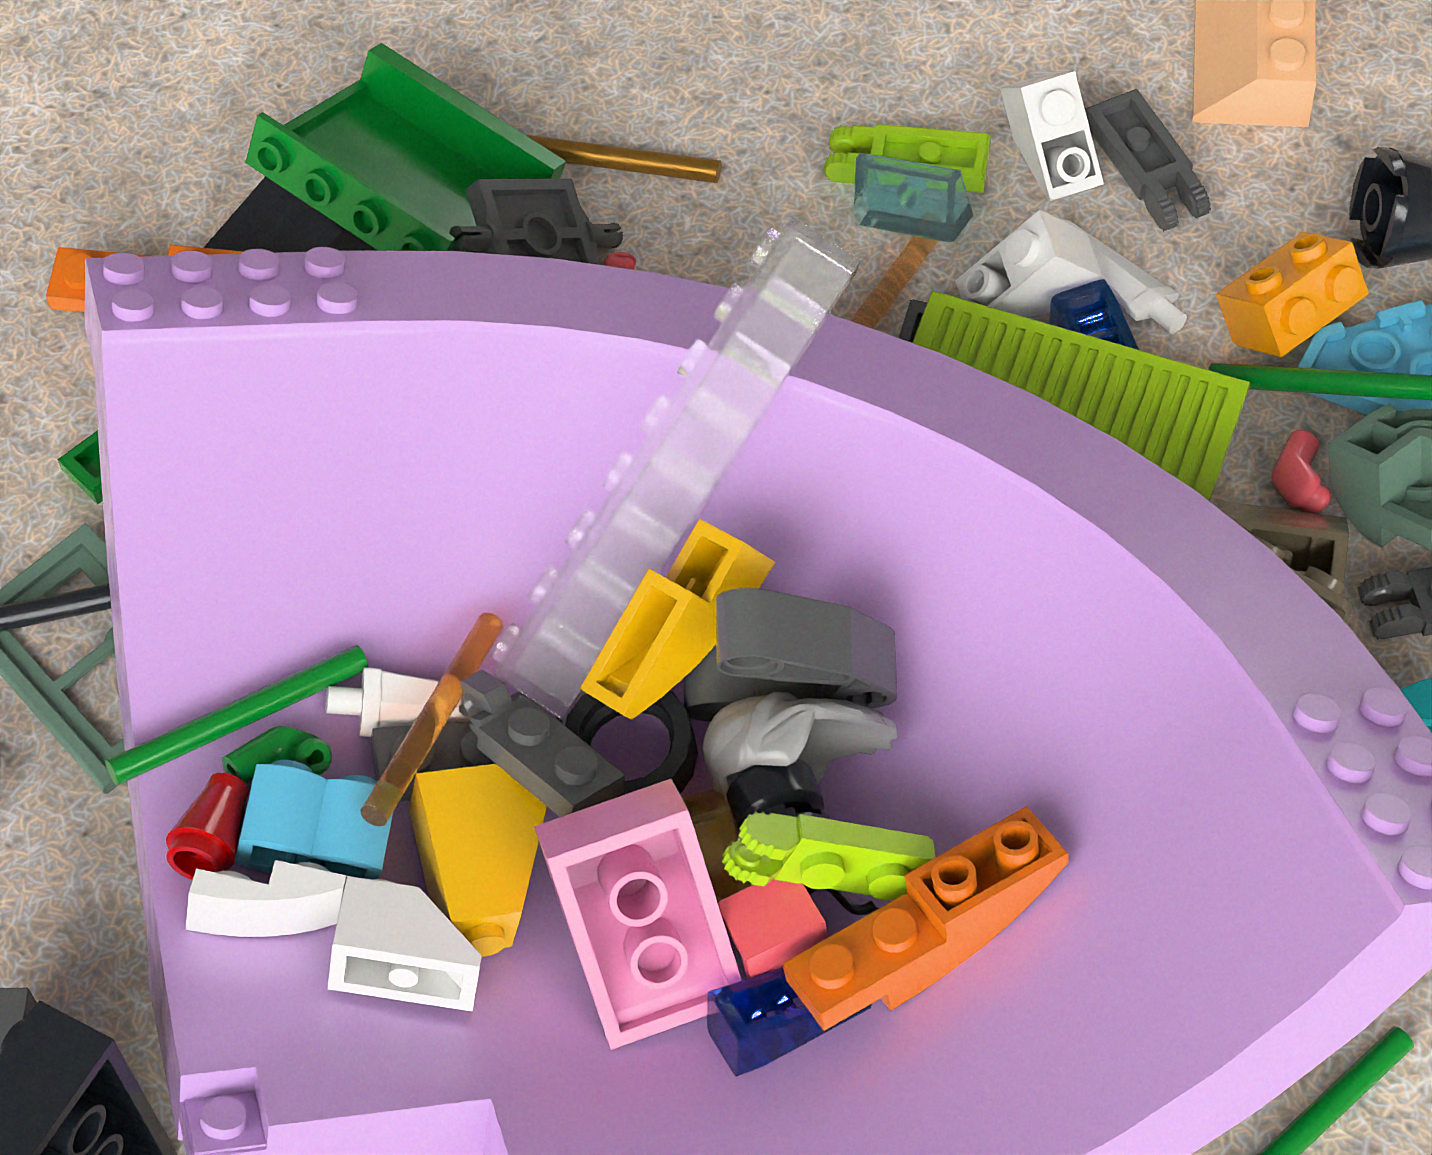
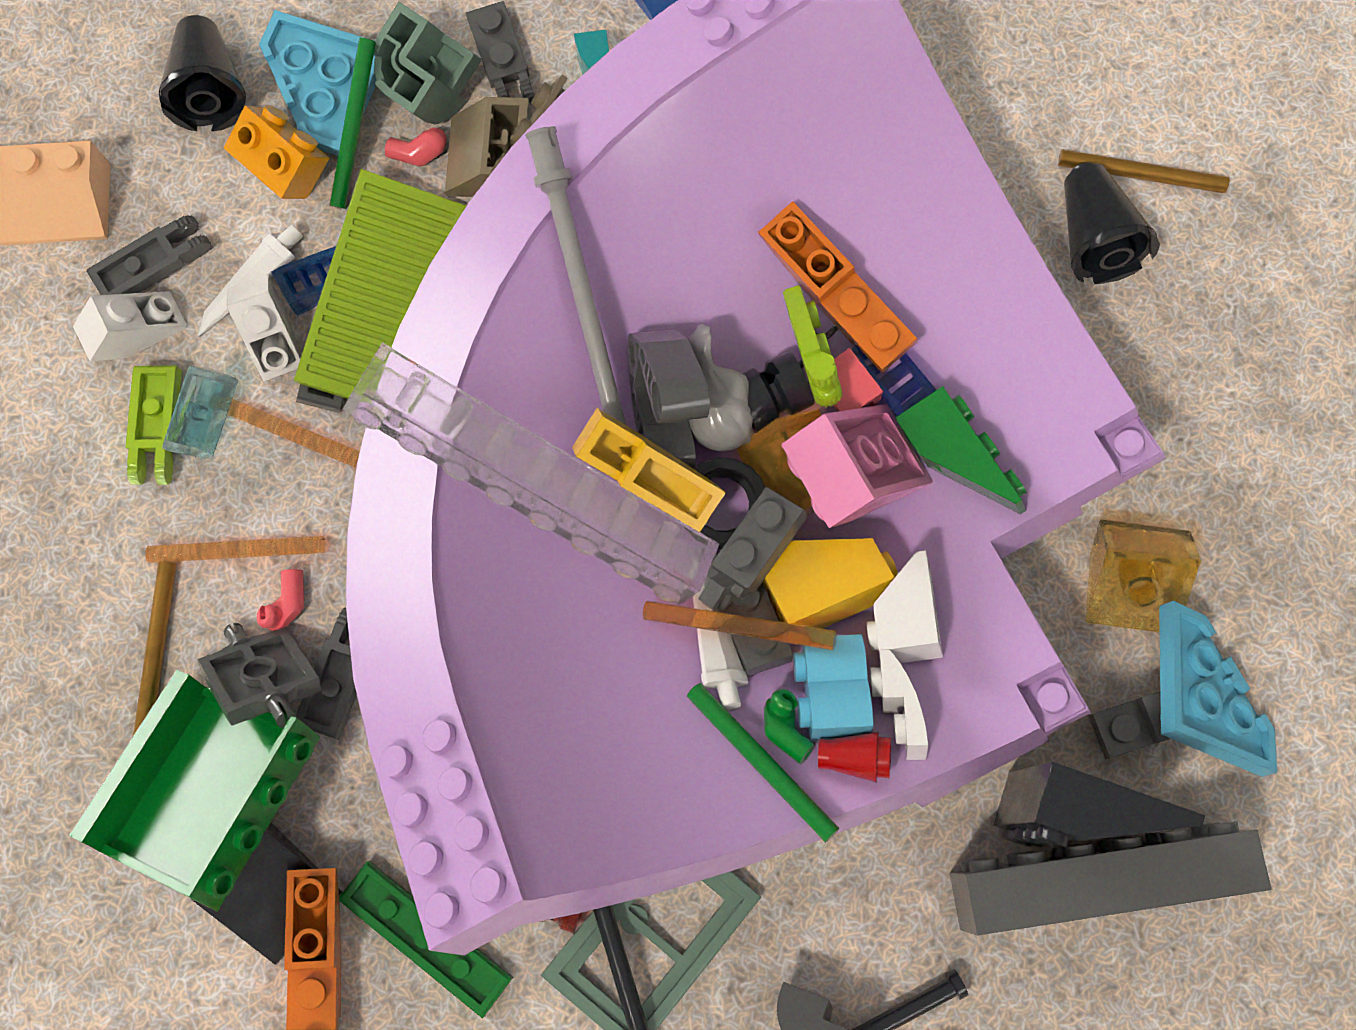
camera: 100 degrees left, 20 degrees up
(638, 1061) = (950, 446): none -> green slope
(725, 216) = (235, 549): none -> clear orange bar
(1103, 502) = (553, 181): none -> light grey bar

